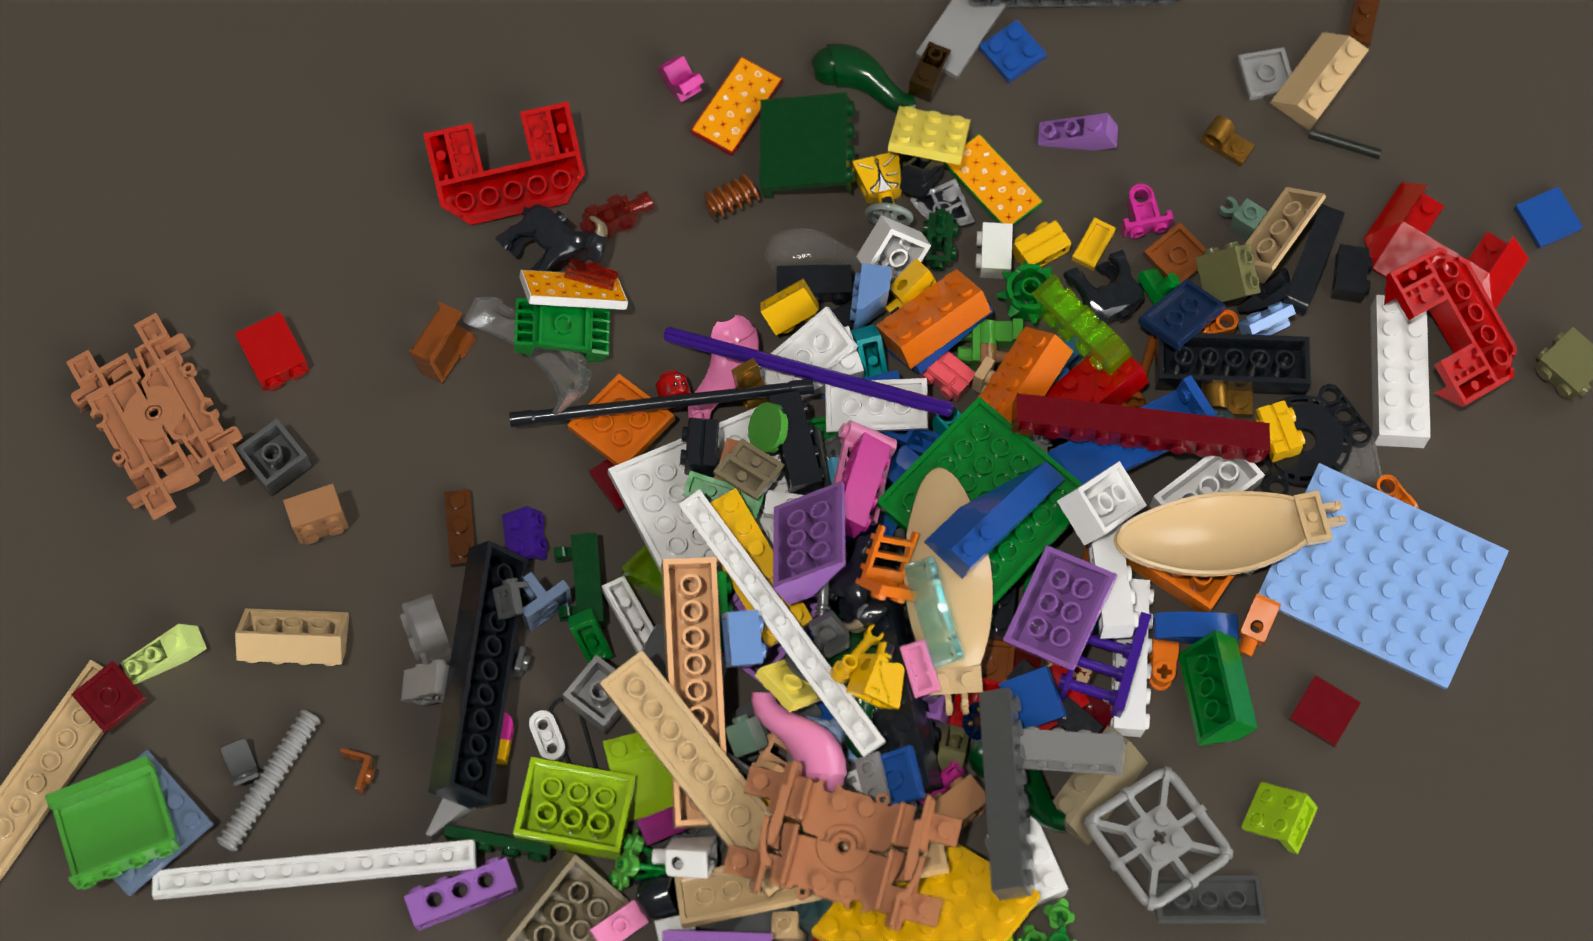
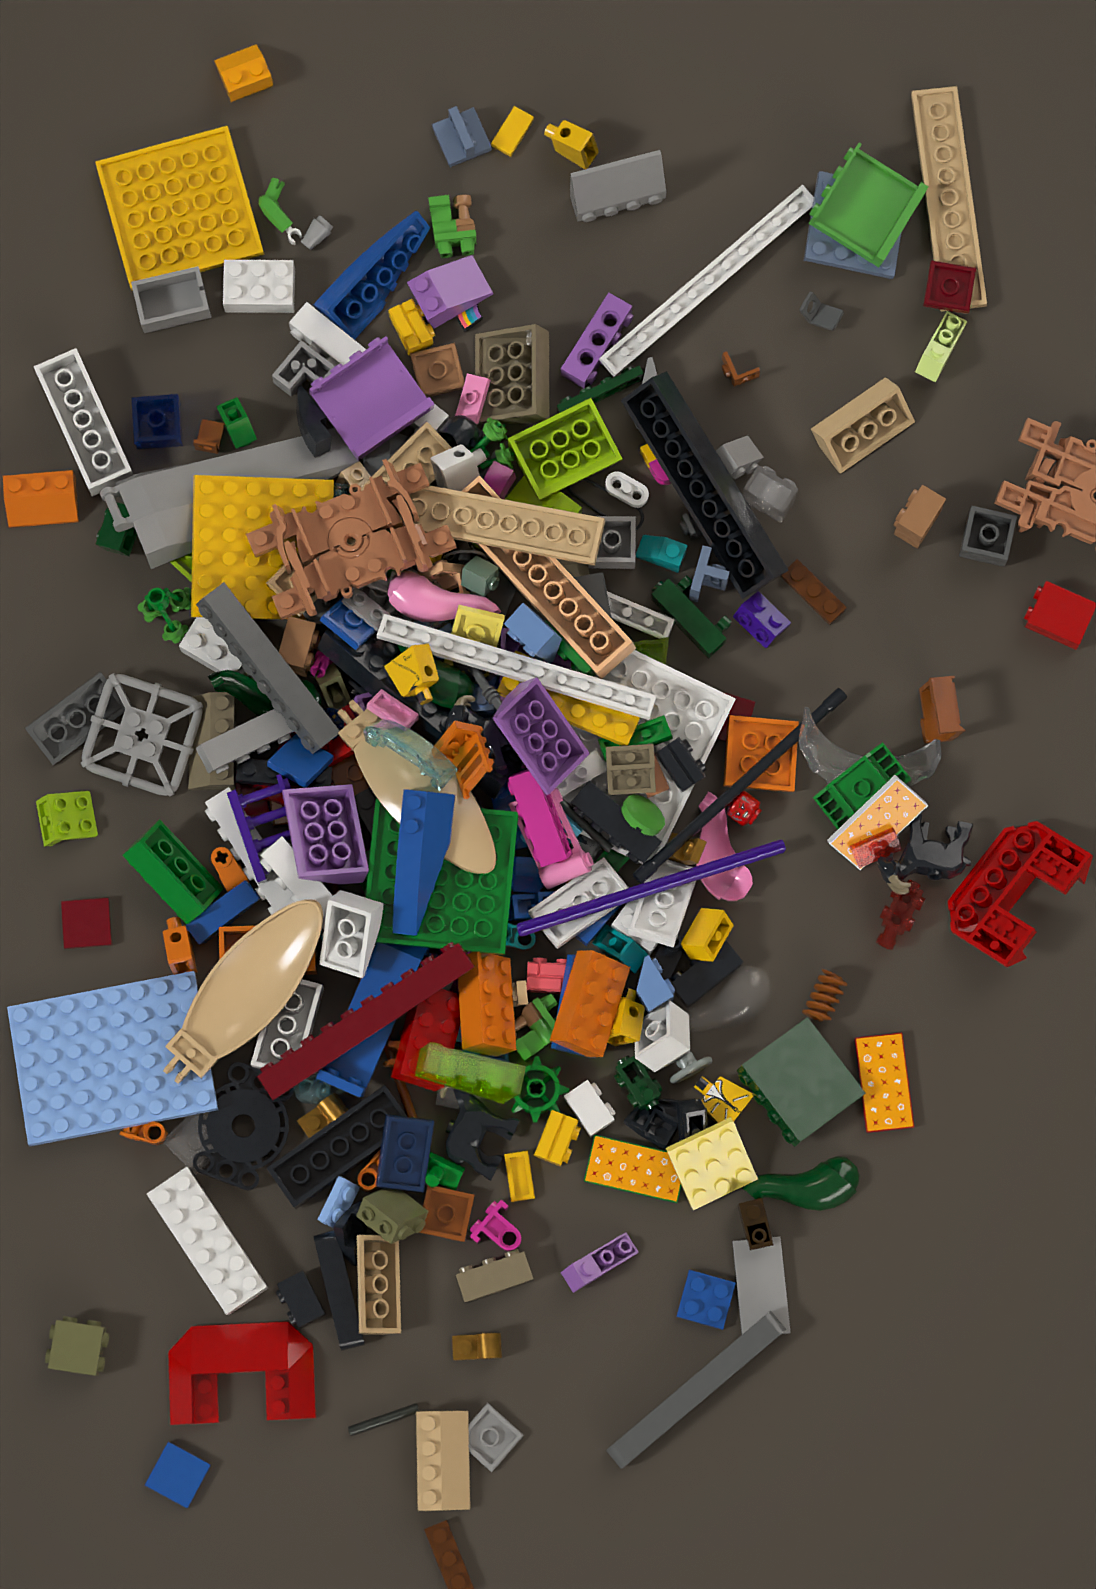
camera: 145 degrees right, 10 degrees up
(268, 780) = (792, 317): light grey piece -> none
(508, 598) = (726, 547): dark grey bracket -> none
(561, 655) = (662, 552): none -> teal slope
(589, 635) = (653, 576): green slope -> none
(680, 78) = (944, 1067): dark pink brick -> none
(831, 633) = (471, 682): dark grey bracket -> none
(844, 668) = (442, 669): yellow brick -> none
(1175, 180) = (494, 1276): none -> dark tan brick
(1245, 218) = (414, 1284): sand green brick -> none
(1284, 437) = (264, 1112): yellow brick -> none
(1465, 317) = (178, 1324): red slope -> none

